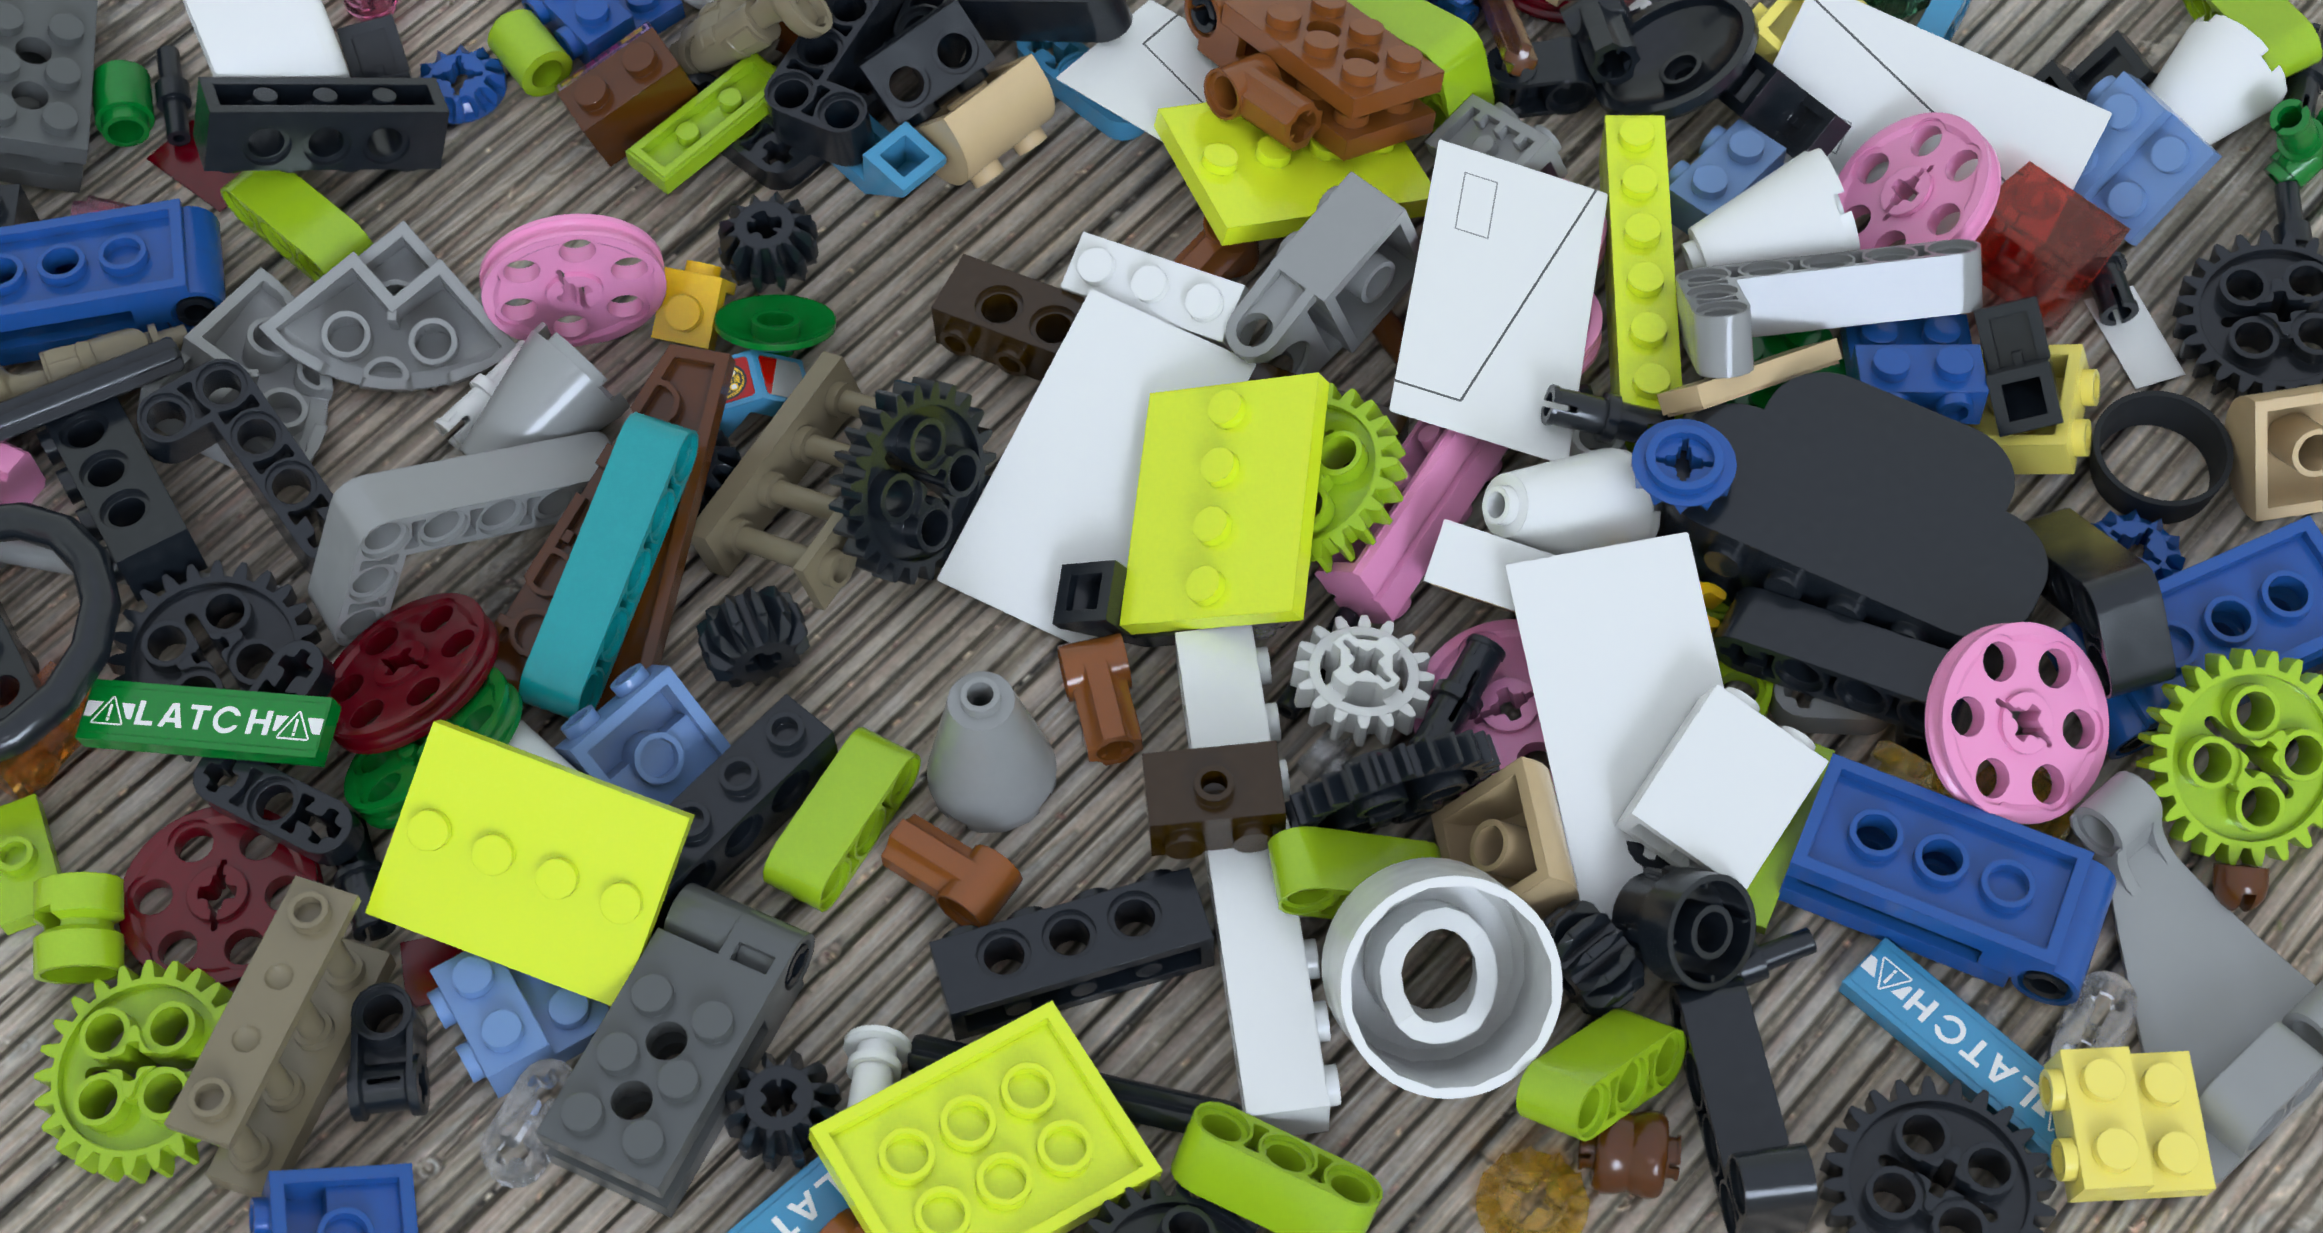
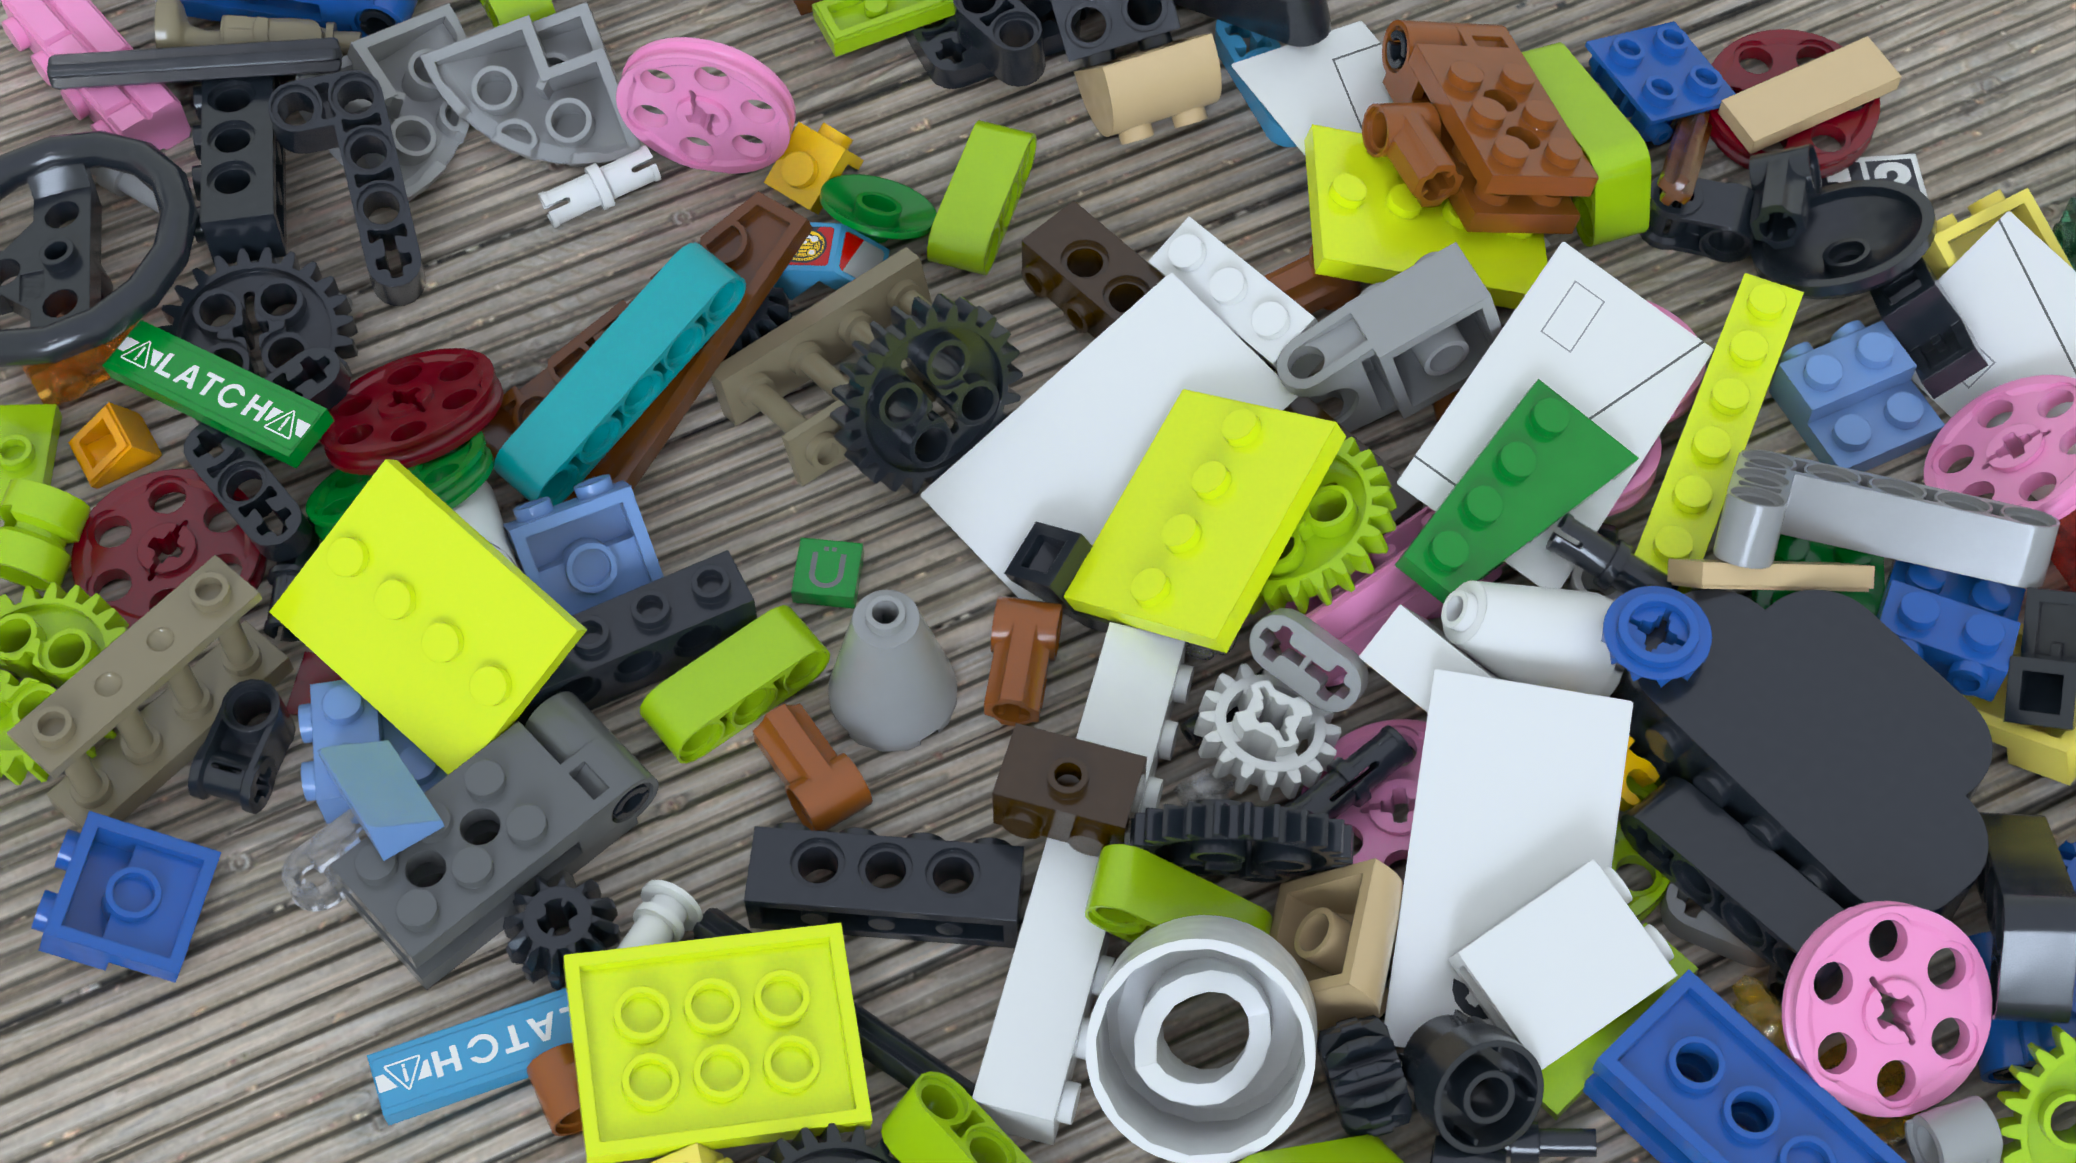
camera: 20 degrees right, 0 degrees up
(111, 814) = (114, 445): none -> light orange slope
(435, 506) = (493, 268): light grey beam -> none
(544, 397) = (627, 216): light grey cone -> none
(559, 1046) = (381, 794): none -> medium blue slope
(752, 636) = (726, 487): black gear -> none
(768, 242) = (905, 131): black gear -> none
(869, 281) = (981, 197): none -> lime beam
(881, 683) = (827, 573): none -> green tile
(895, 163) = (1053, 93): dark azure slope -> none
(1373, 615) = (1298, 671): none -> light grey beam
(1495, 378) = (1520, 484): none -> green wing
(1500, 134) = (1635, 260): light grey bracket -> none
(1777, 218) = (1869, 429): white cone -> none

